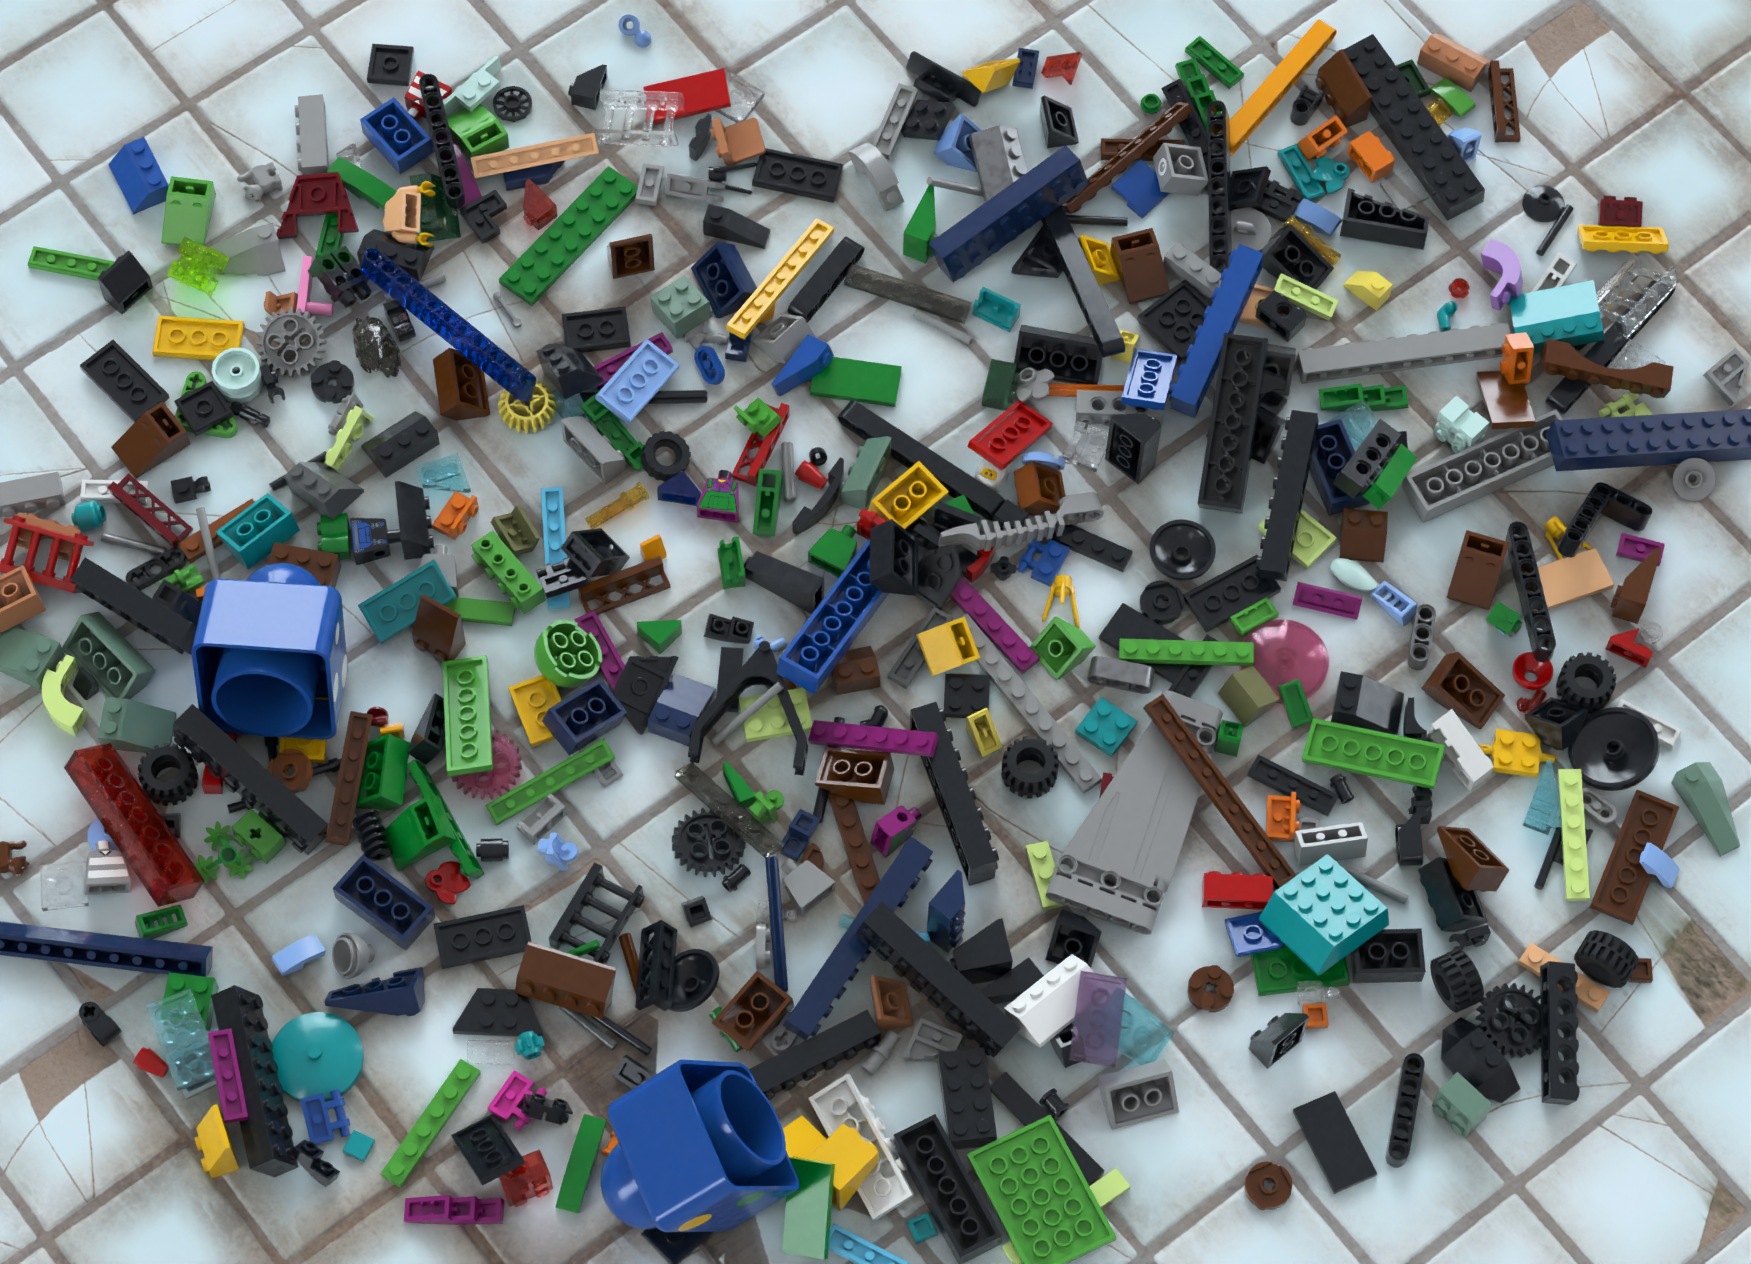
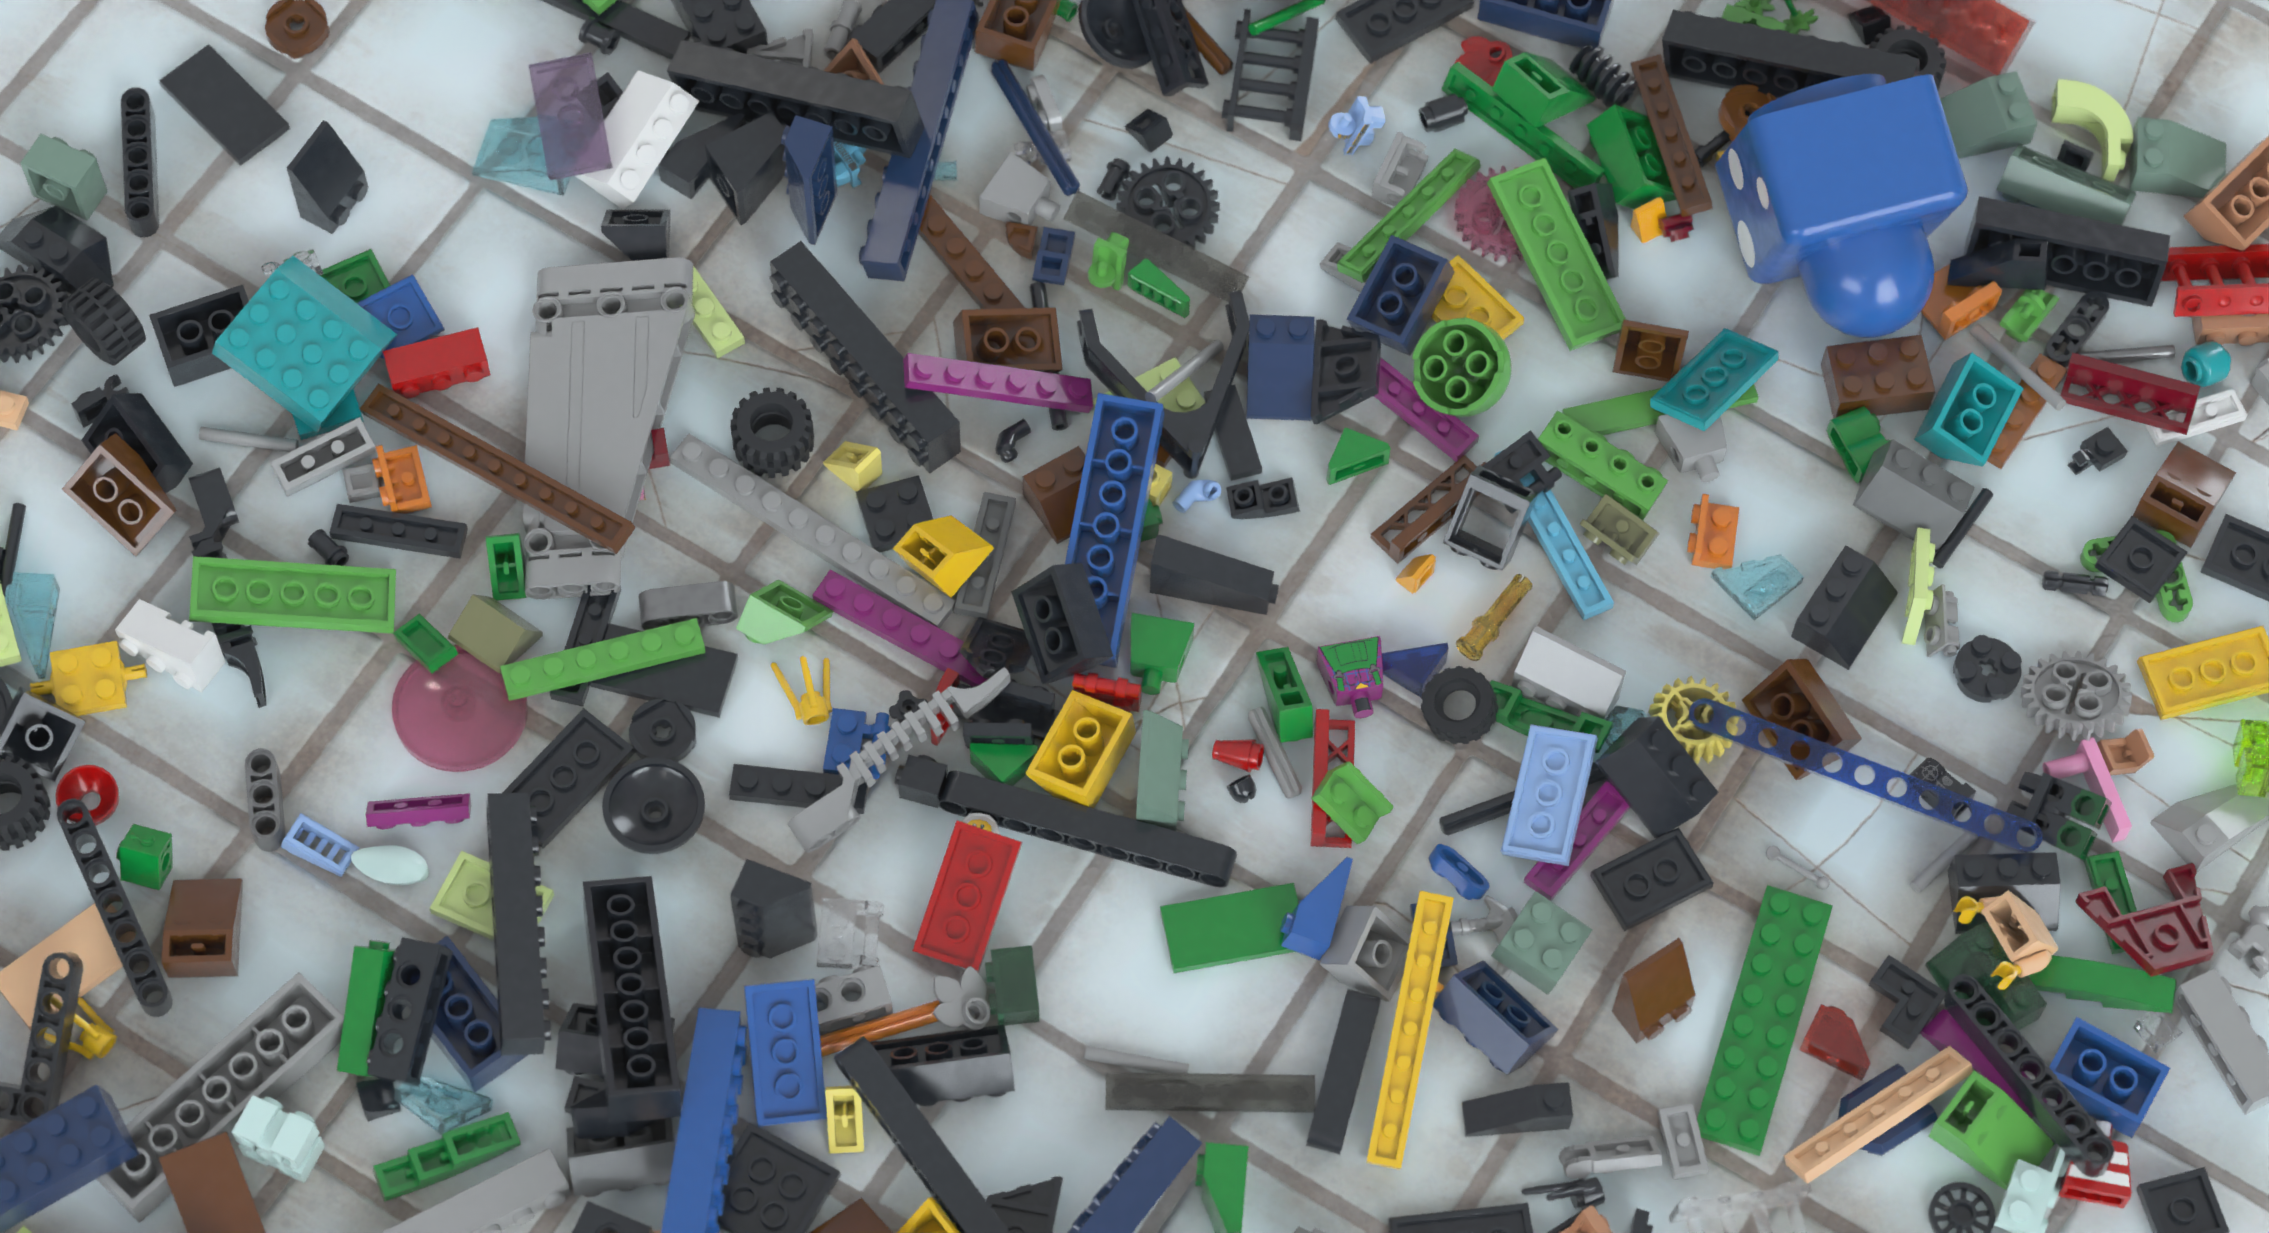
camera: 160 degrees right, 0 degrees up
(237, 375) = (2122, 619): light aqua wheel -> none
(270, 379) = (2073, 631): black plate -> none
(371, 539) = (1810, 457): torso -> none
(376, 347) = (1963, 731): clear smoke head -> none
(413, 520) = (1766, 491): black slope -> none
(731, 564) = (1297, 588): green hinge -> none
(809, 517) = (1216, 688): black slope -> none
(894, 829) = (925, 292): magenta torso -> none
(996, 309) = (1063, 1112): teal hinge -> none
(1038, 488) = (894, 839): dark orange slope -> none
(1044, 459) = (903, 870): light blue tile -> none
(1106, 727) = (686, 534): teal plate -> none
(1138, 1094) = (492, 80): light grey slope -> none
(1206, 1000) = (434, 221): reddish brown plate -> none
(1253, 616) = (519, 752): bright green plate -> none
(1317, 1015) = (287, 241): orange plate -> none
(1363, 535) = (390, 920): reddish brown slope -> none
(1367, 704) = (322, 677): black slope -> none
(1463, 689) = (187, 740): reddish brown slope -> none
(1528, 704) = (84, 755): clear red arm -> none

